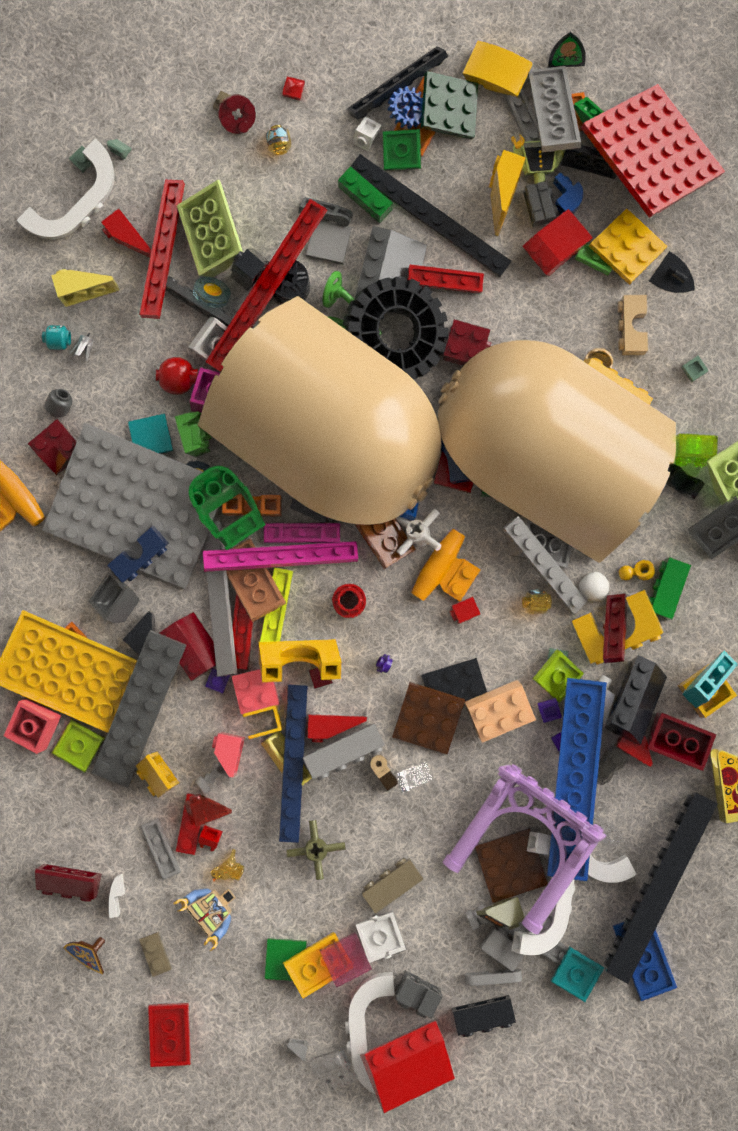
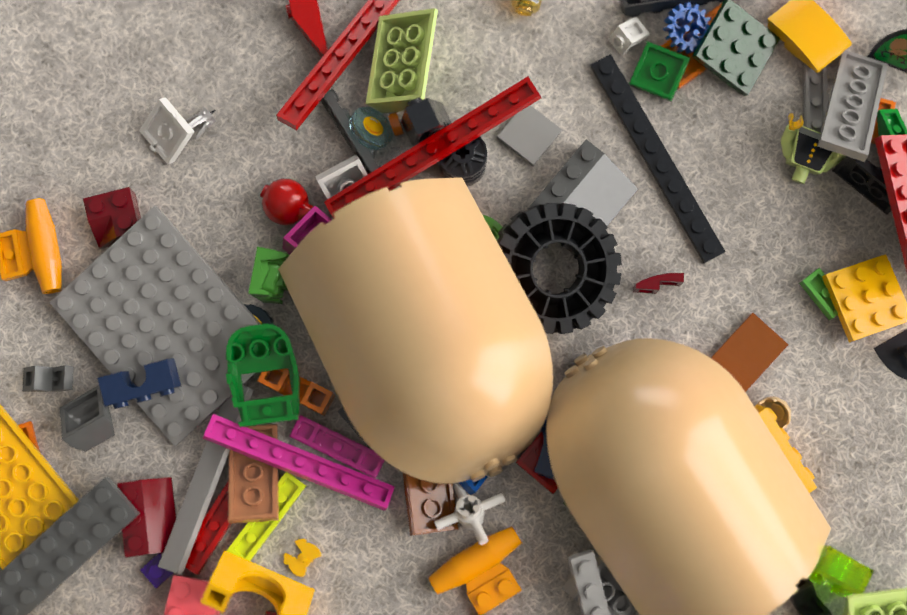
camera: 25 degrees right, 5 degrees down
(56, 337) = (179, 96): teal head -> none
(58, 403) = (141, 170): dark grey head -> none
(62, 365) = (166, 131): none -> white plate
(68, 585) = (48, 379): none -> dark grey slope
(80, 286) = (227, 54): light yellow slope -> none
(138, 635) = (92, 474): black slope -> none
(151, 433) = (226, 253): teal tile -> none
(228, 280) = (395, 124): none -> orange tile
(317, 623) = (309, 553): none -> yellow piece
(335, 213) = (548, 104): dark grey hinge -> none
(335, 291) = (510, 193): bright green dish -> none
(358, 593) = (337, 559): red piece -> none
(365, 194) = (594, 101): green brick -> none
(446, 278) = (641, 237): red plate -> none
(465, 342) = (629, 319): dark red hinge -> none
(470, 309) = (652, 284): none -> dark red slope
(503, 185) = (756, 163): yellow slope -> none
(539, 203) = (788, 203): dark grey brick -> none
(557, 242) = (788, 255): red slope -> none
(562, 323) = (749, 351): none -> dark orange tile
(571, 195) = (828, 212): blue brick -> none
(632, 341) = (822, 408): tan arch -> none
(694, 368) = (882, 476): sand green plate -> none

